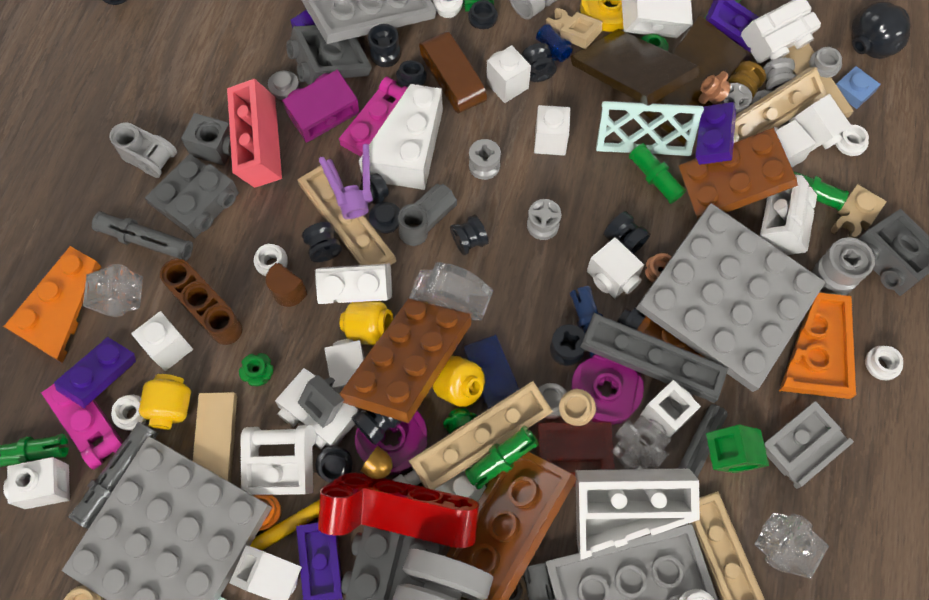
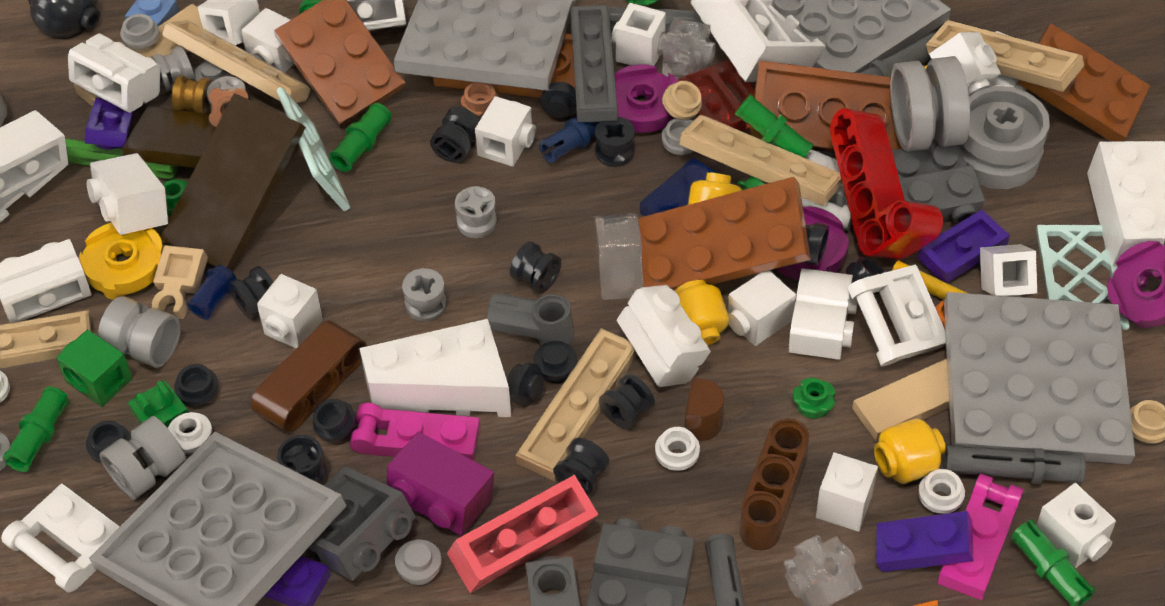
camera: 115 degrees left, 15 degrees down
(289, 193) = (584, 461): none -> black wheel
(321, 400) = (818, 280): dark grey tile -> none
(349, 198) = (561, 379): medium lavender plant -> none
(378, 464) = (845, 227): pearl gold hinge -> none
(552, 130) = (354, 240): white brick -> none
(716, 133) = (302, 80): dark purple plate -> none

